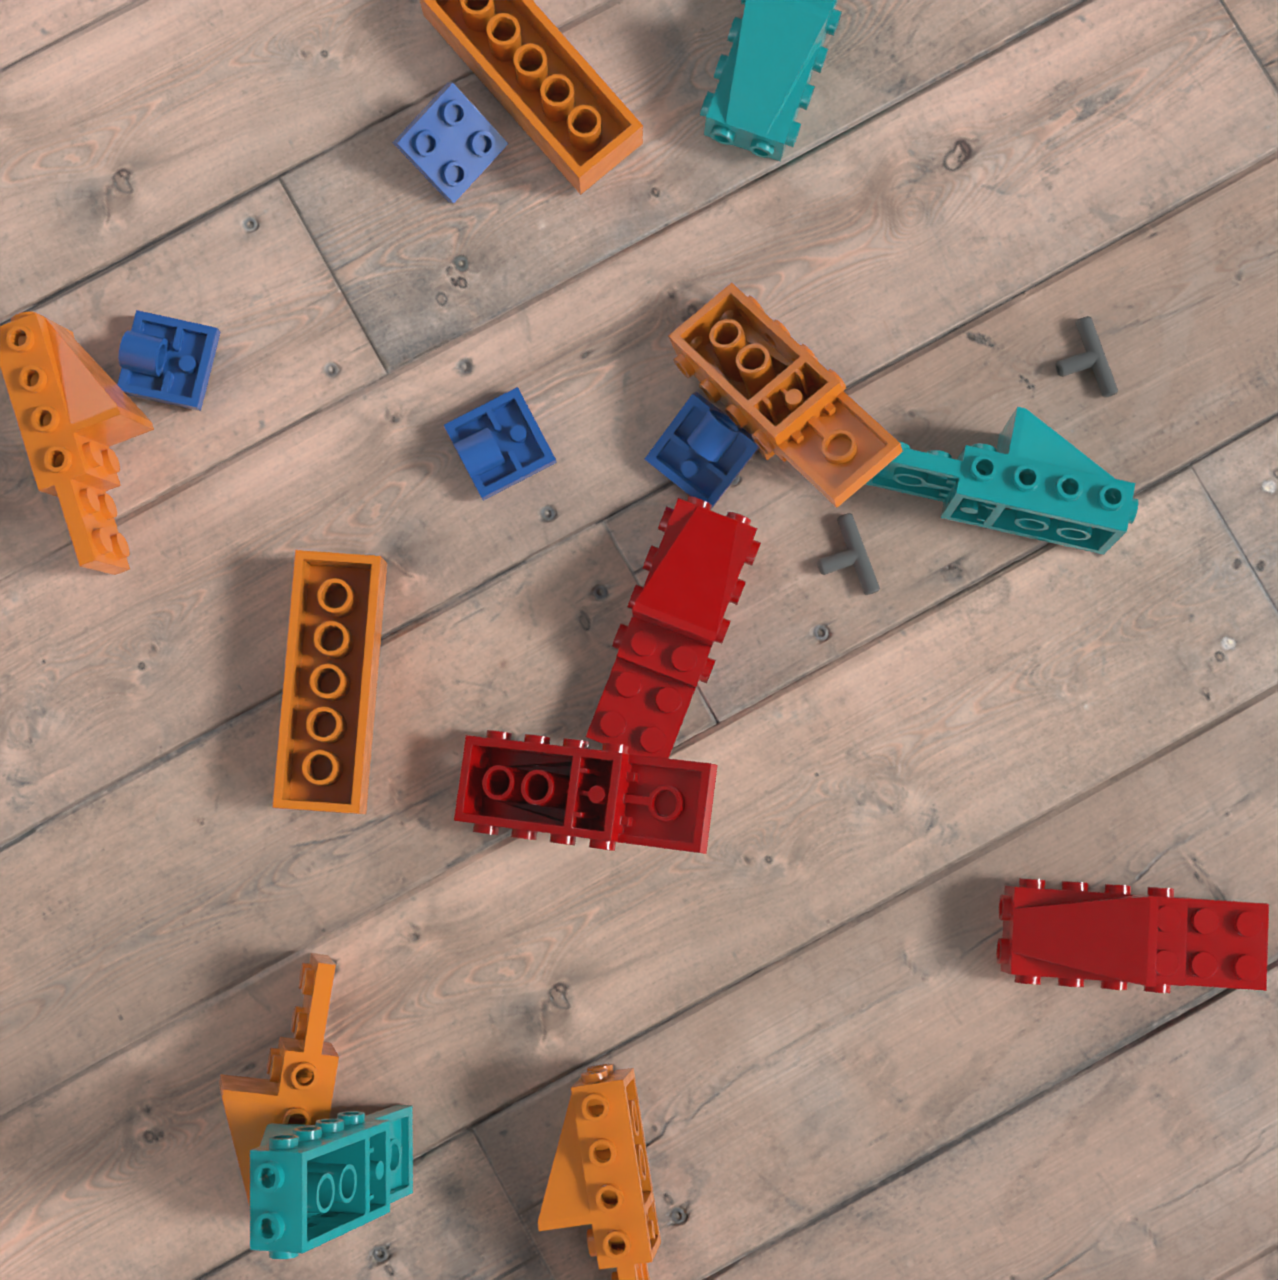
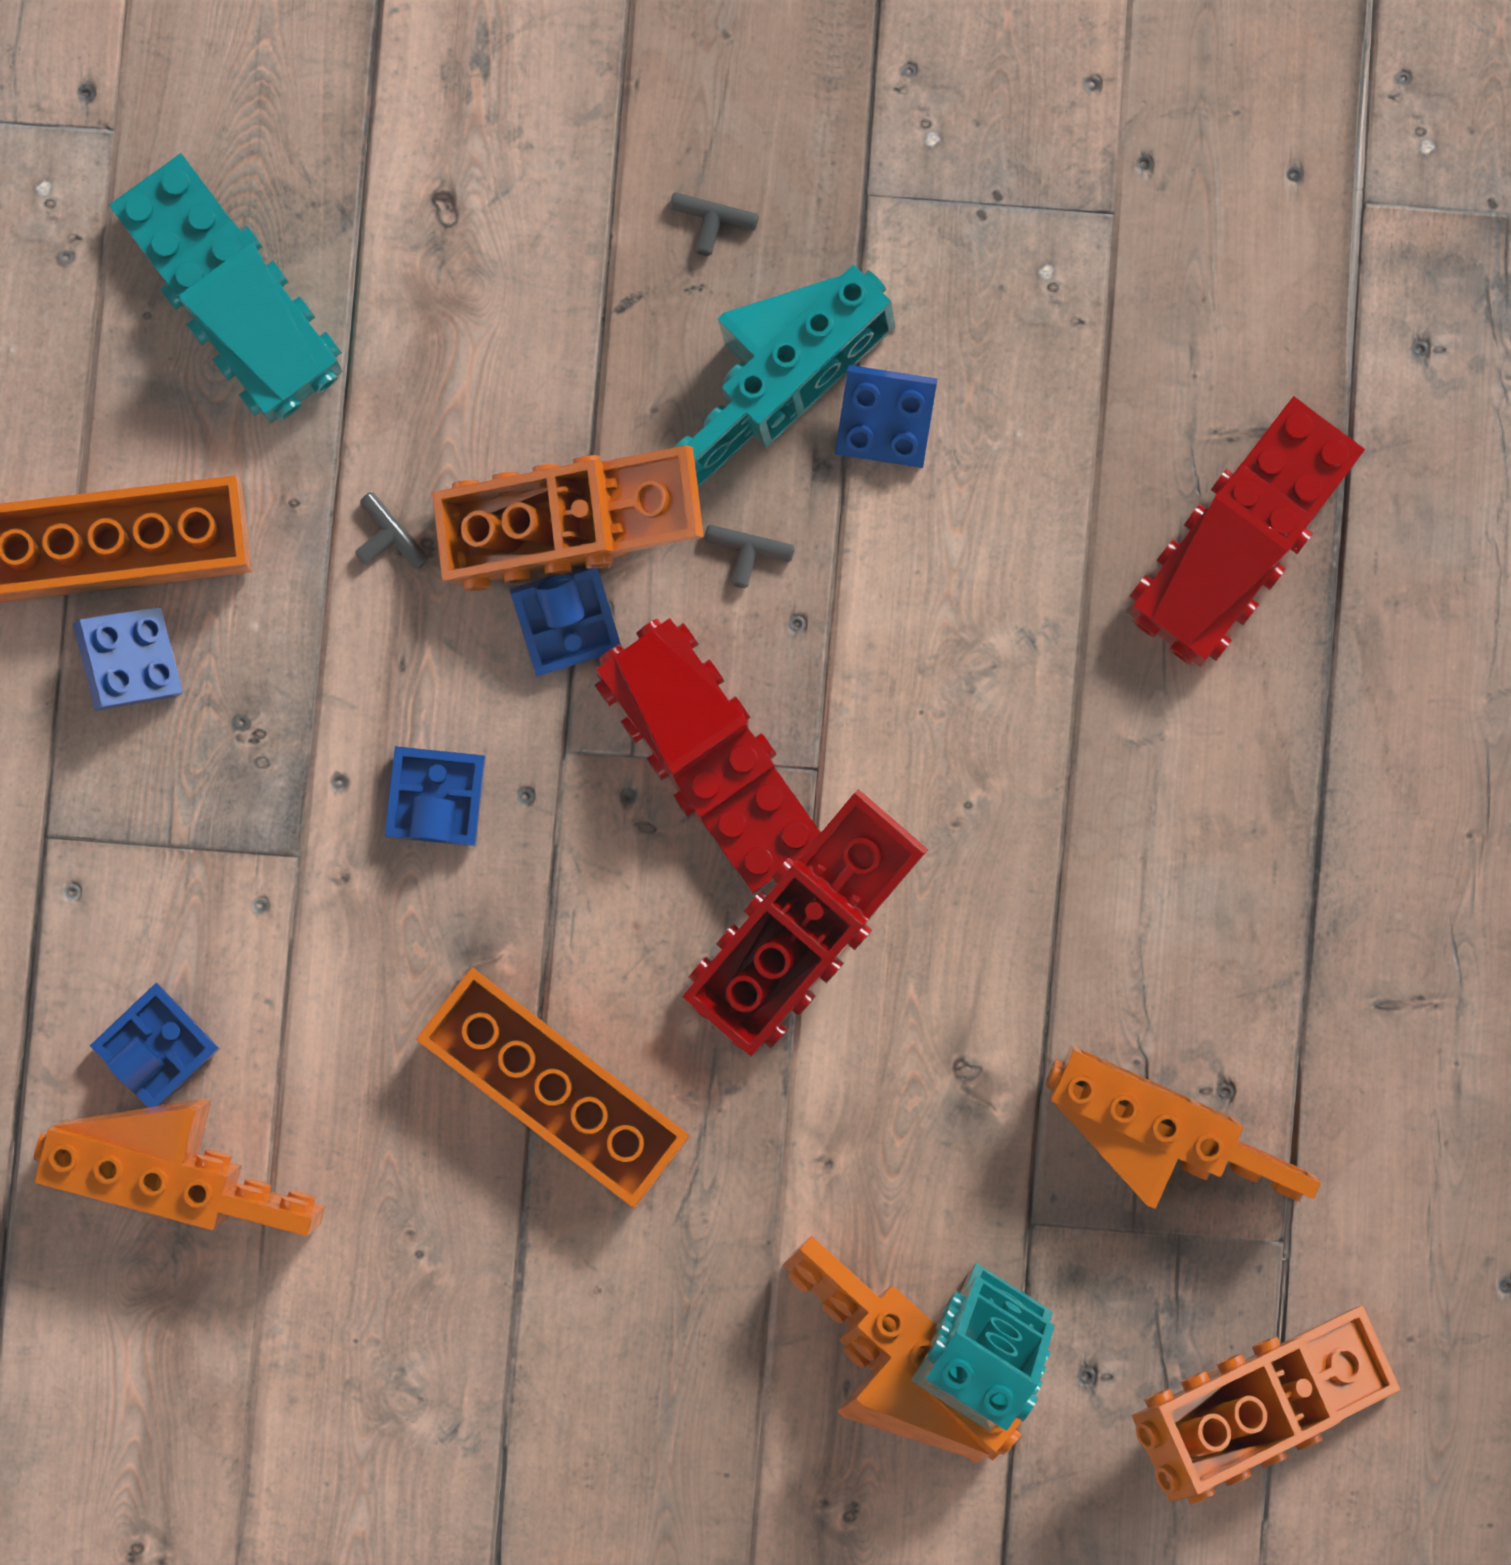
camera: 55 degrees left, 0 degrees up
(680, 277) = (390, 533): none -> dark grey piece
(1030, 592) = (885, 416): none -> blue plate

